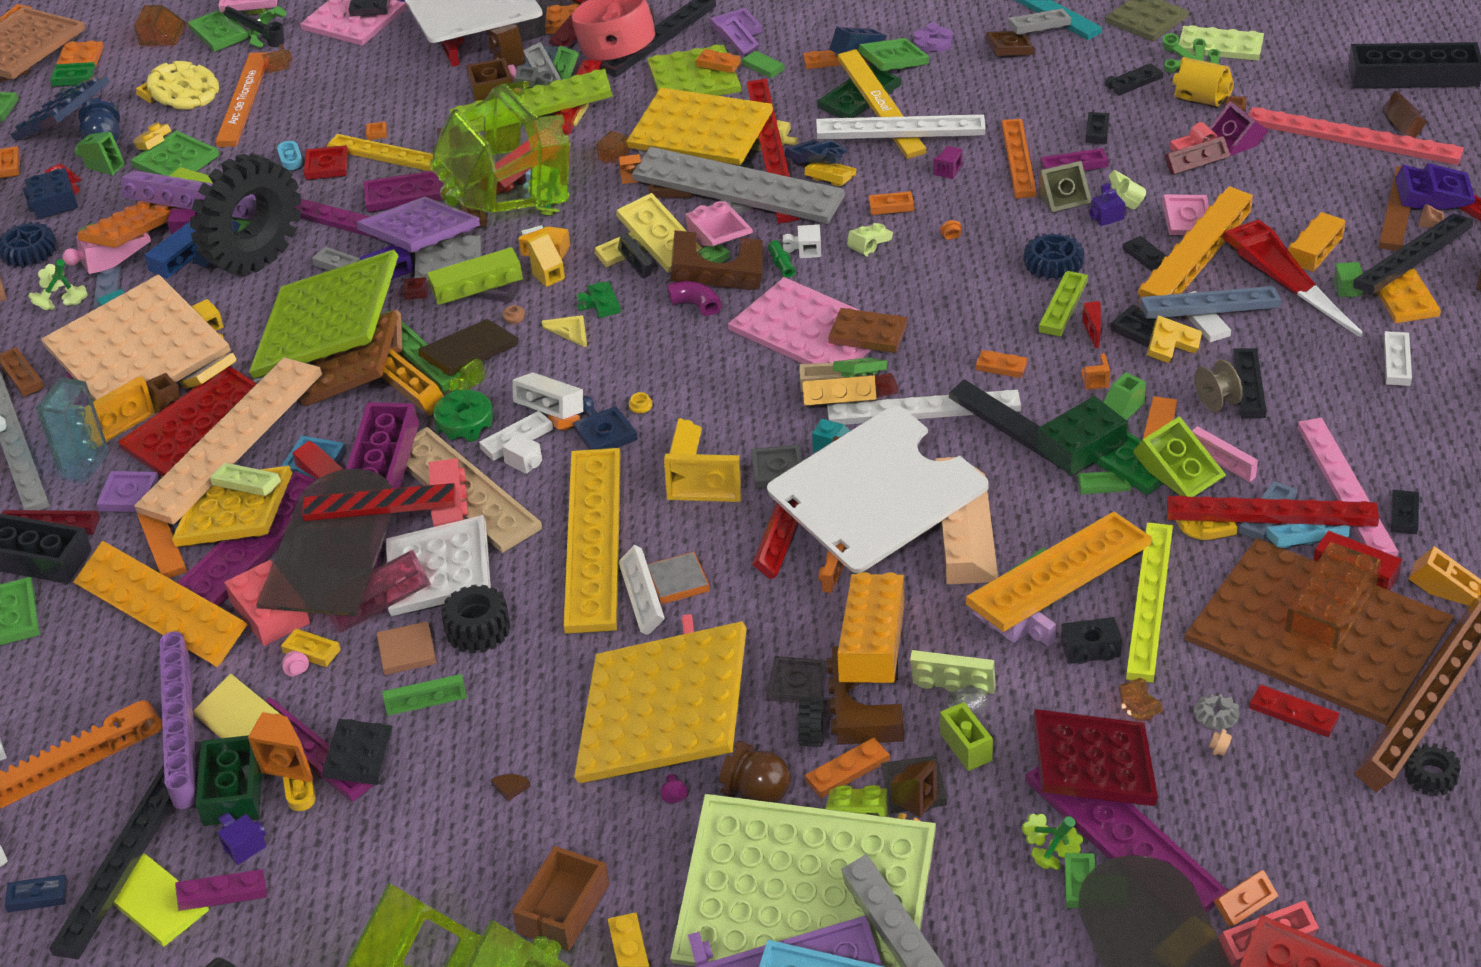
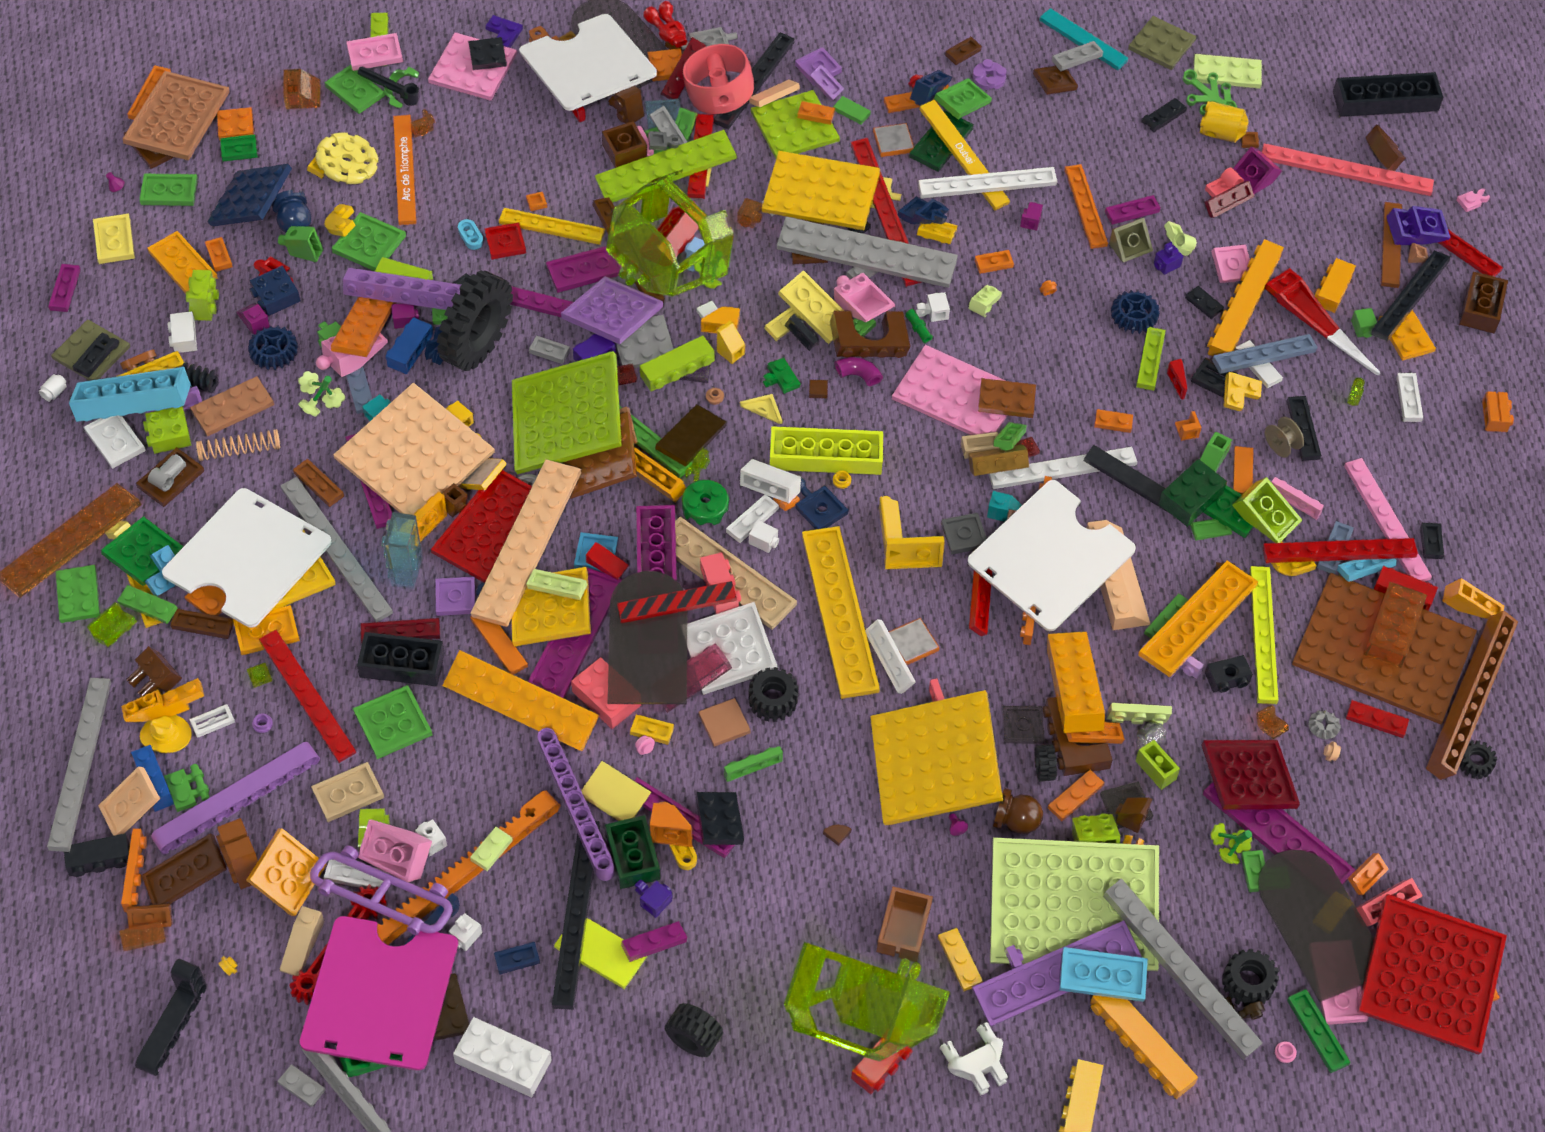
camera: 15 degrees left, 15 degrees up
(17, 214) = (254, 318): none -> magenta slope
(49, 757) = (491, 848): none -> yellowish green plate
(627, 165) = (770, 236): orange slope -> none
(628, 369) = (826, 450): none -> neon yellow brick
(641, 314) = (818, 388): none -> reddish brown tile
(677, 45) = (774, 93): none -> light nougat tile
(803, 91) = (893, 140): none -> flat silver tile
(907, 16) = (963, 50): none -> reddish brown plate
(908, 694) = (1111, 734): none -> orange plate
(1097, 127) = (1144, 171): black plate -> none
(1324, 345) = (1356, 391): none -> clear neon green bar

